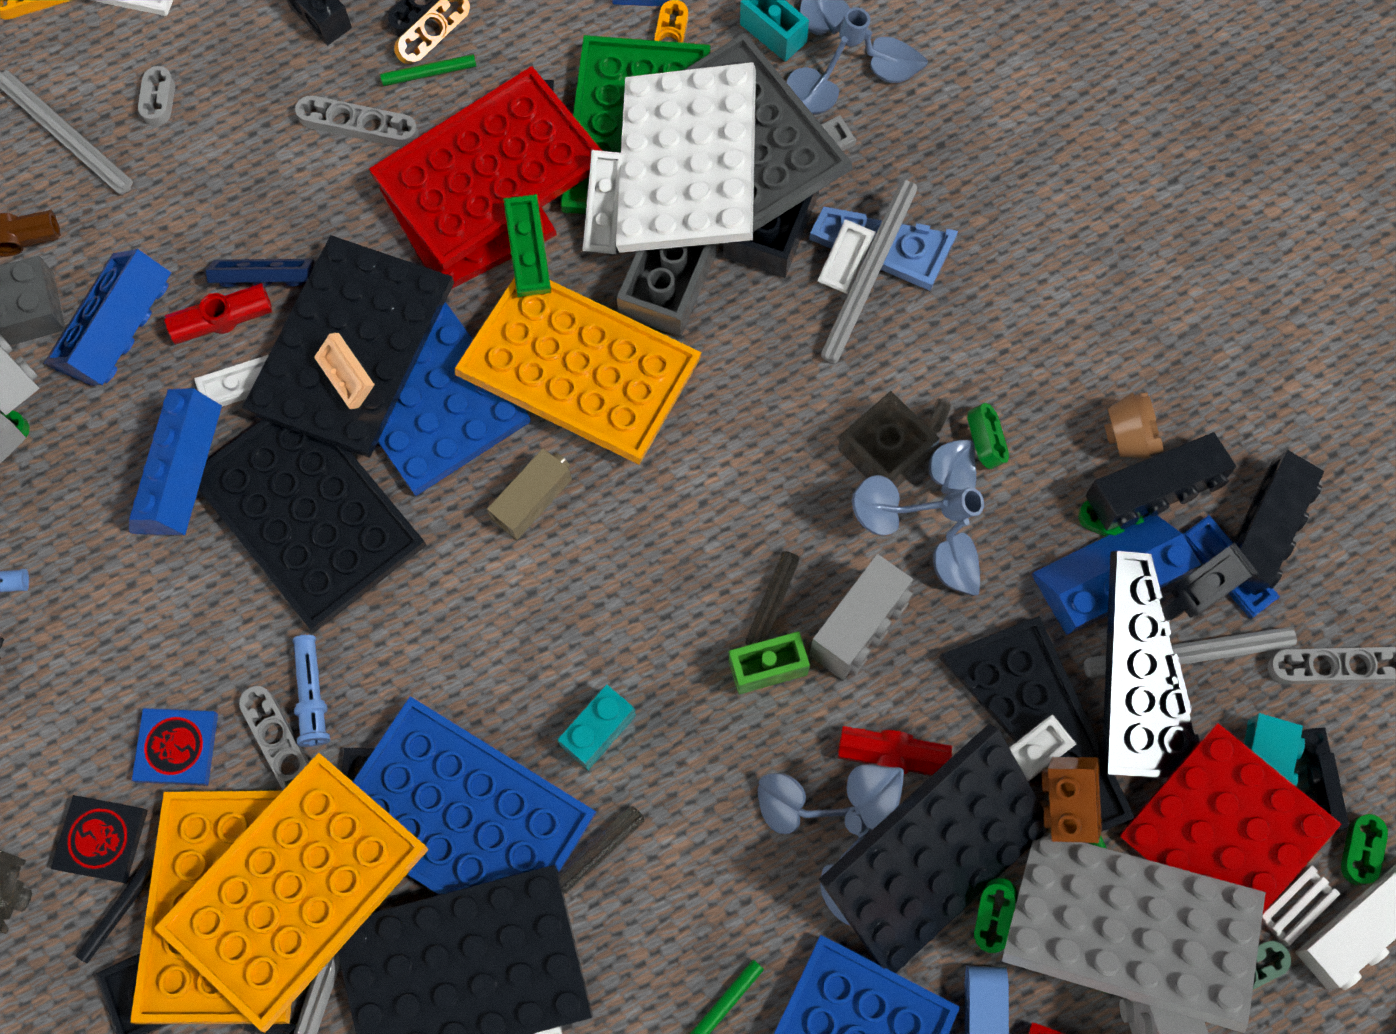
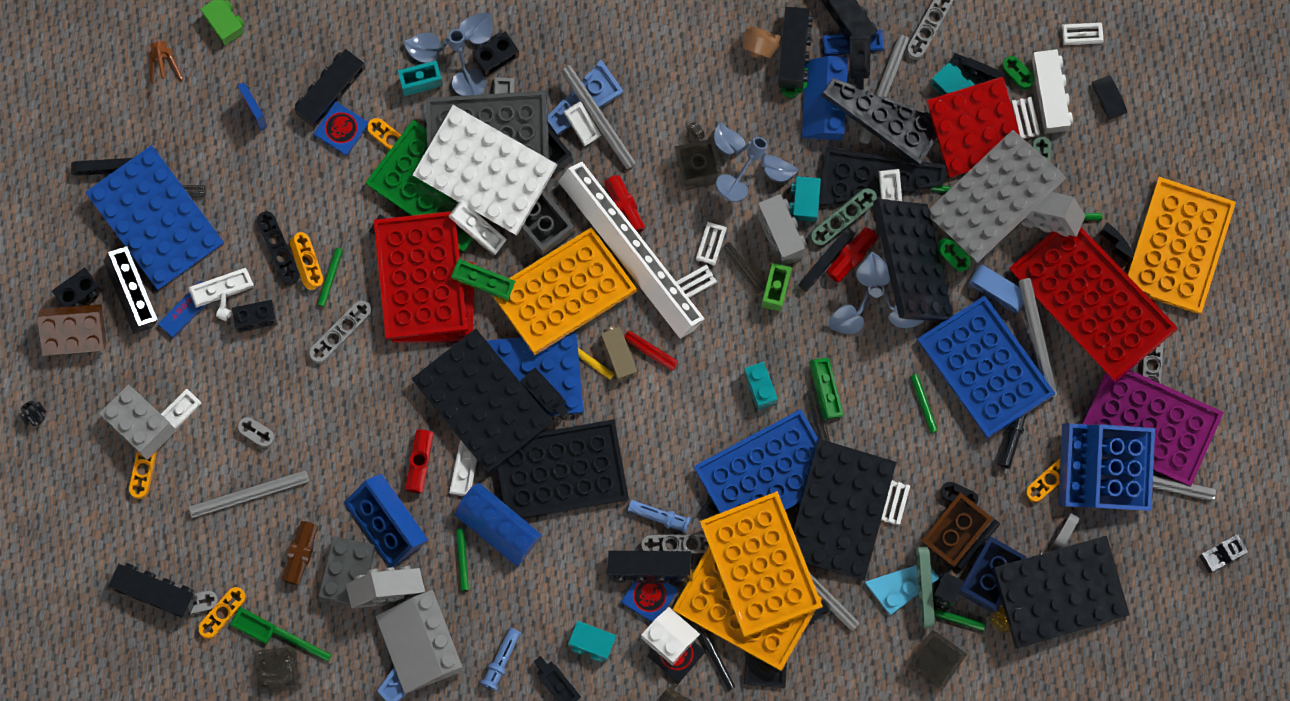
camera: 65 degrees left, 5 degrees up
(55, 699) = (591, 641): none -> teal brick
(102, 450) = (462, 560): none -> green bar
(112, 810) = (670, 635): none -> white slope
(214, 720) = (650, 566): none -> black brick
(265, 271) = (406, 427): dark blue plate -> none
(344, 371) = (504, 407): light nougat plate -> none
(406, 421) = (544, 393): none -> black hinge
(500, 468) = (595, 364): none -> yellow bar
(564, 537) = (650, 350): none -> red axle
(653, 833) = (826, 388): none -> green tile
(695, 426) = (631, 250): none -> white brick
(709, 529) = (692, 275): none -> white tile
(762, 379) = (624, 201): none -> red piece
(794, 544) = (706, 259): none -> white tile
(862, 716) = (827, 259): none -> black beam
(871, 103) = (499, 57): none -> black brick
(937, 630) = (806, 199): none -> teal brick
(947, 699) = (842, 215): none -> sand green beam
(988, 436) = (720, 114): green beam -> none
(1073, 799) = (923, 186): dark orange brick -> none

